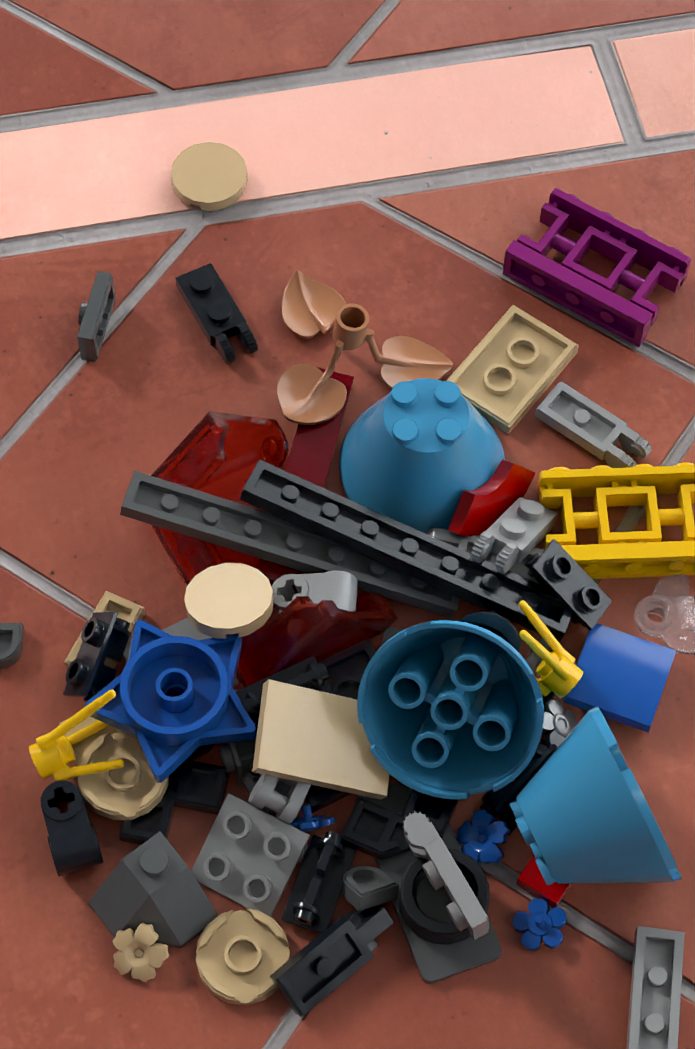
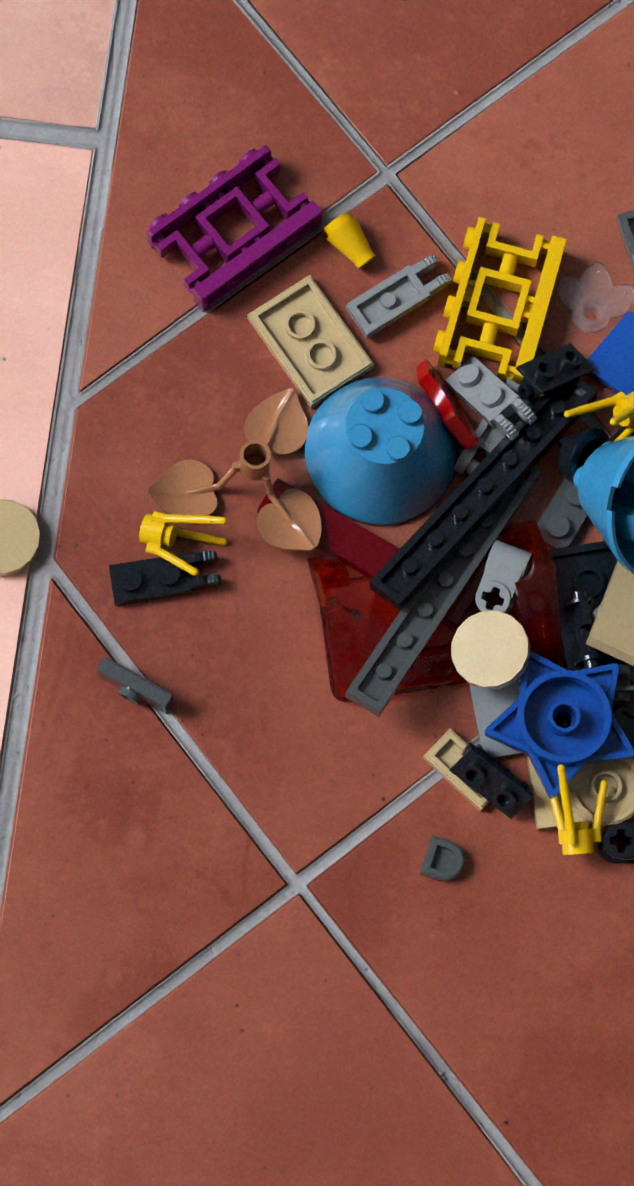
camera: 75 degrees left, 15 degrees up
(258, 293) = (159, 531): none -> yellow plant
(632, 366) = (349, 239): none -> yellow cone

